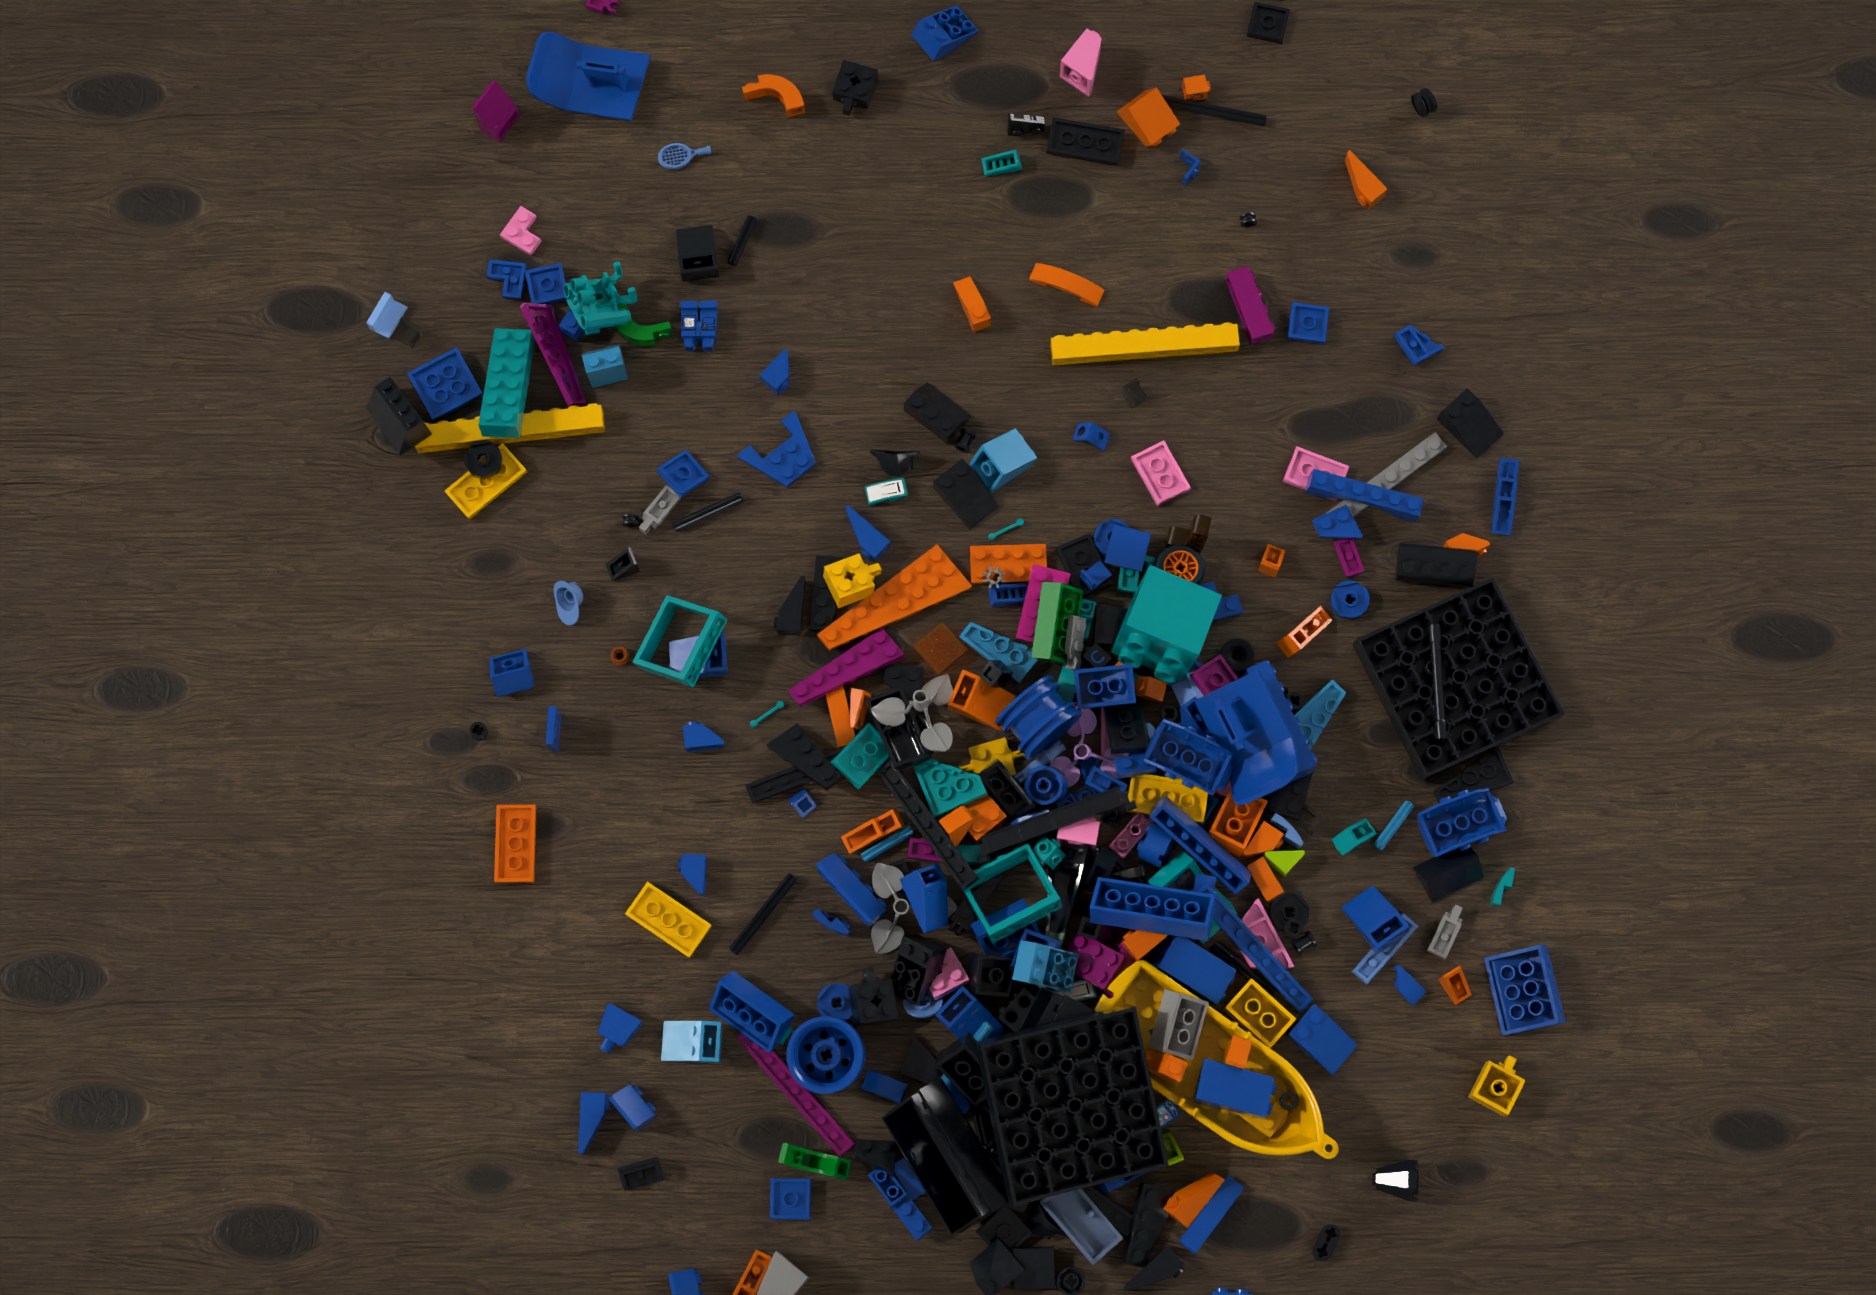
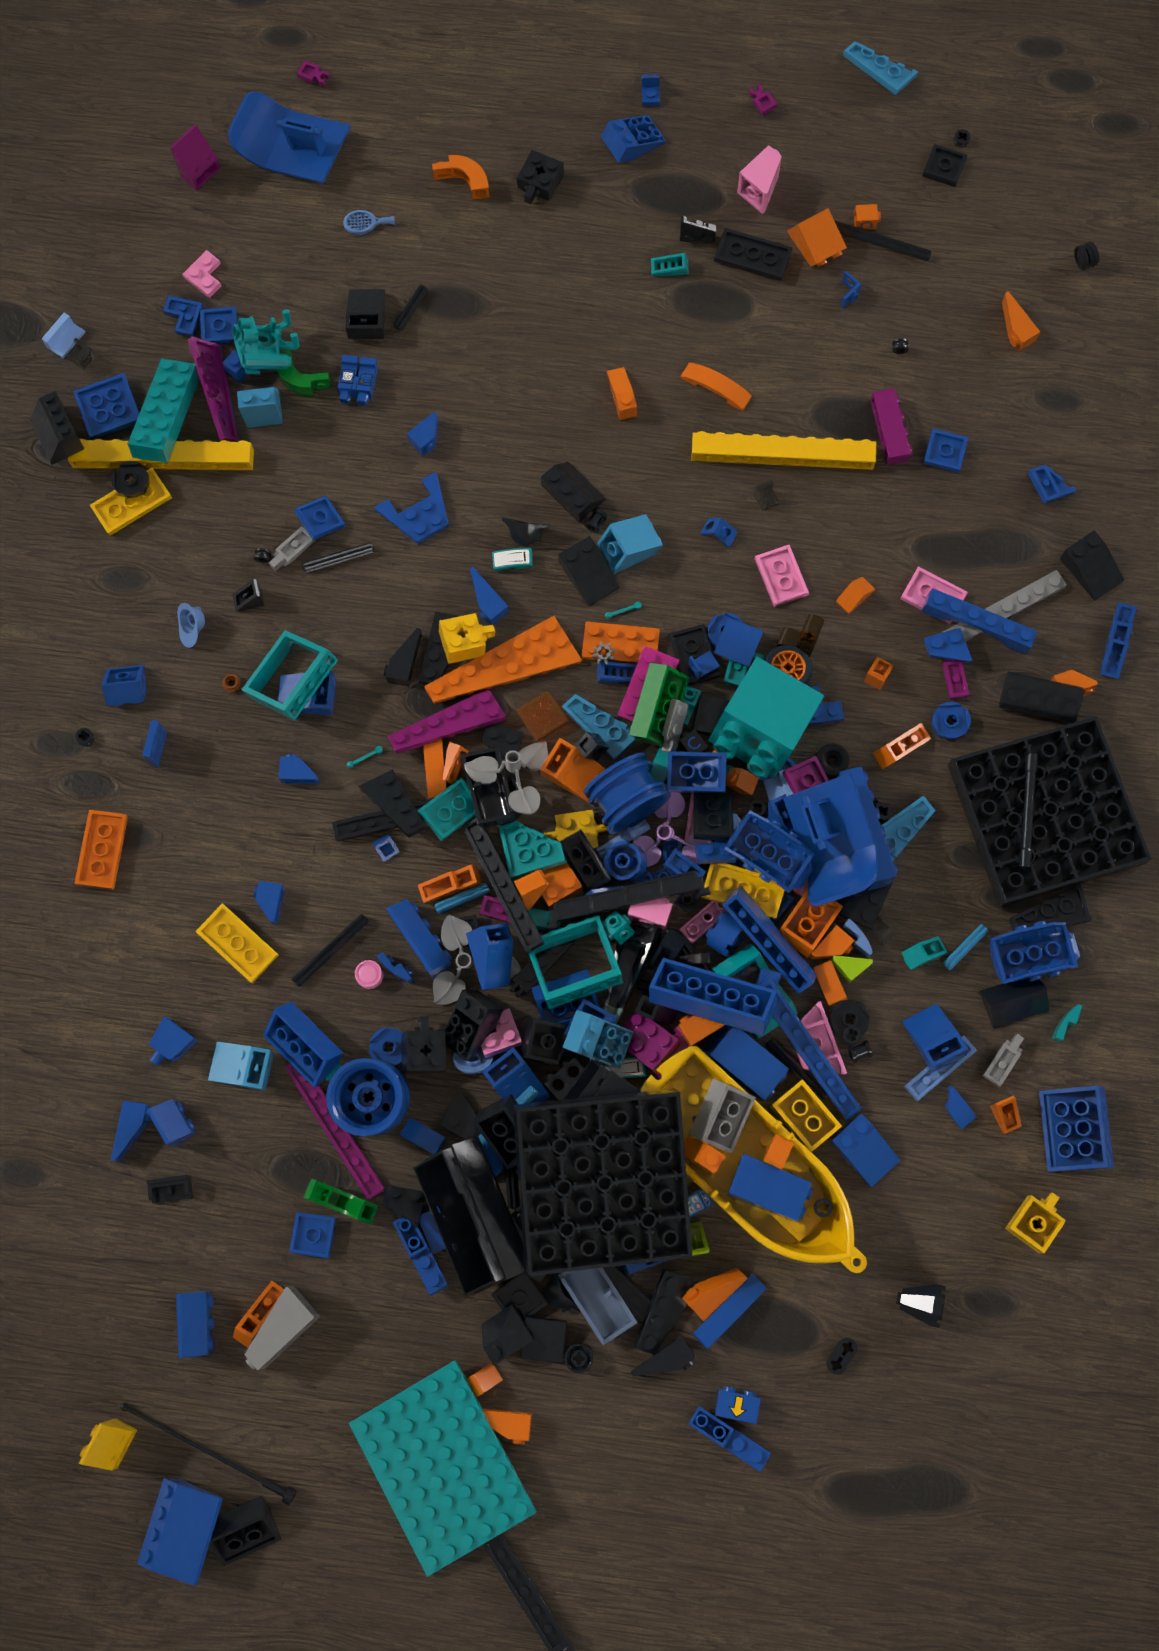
camera: 10 degrees right, 0 degrees up
(806, 933) = (369, 974): none -> bright pink wheel
(1237, 483) = (855, 594): none -> orange slope

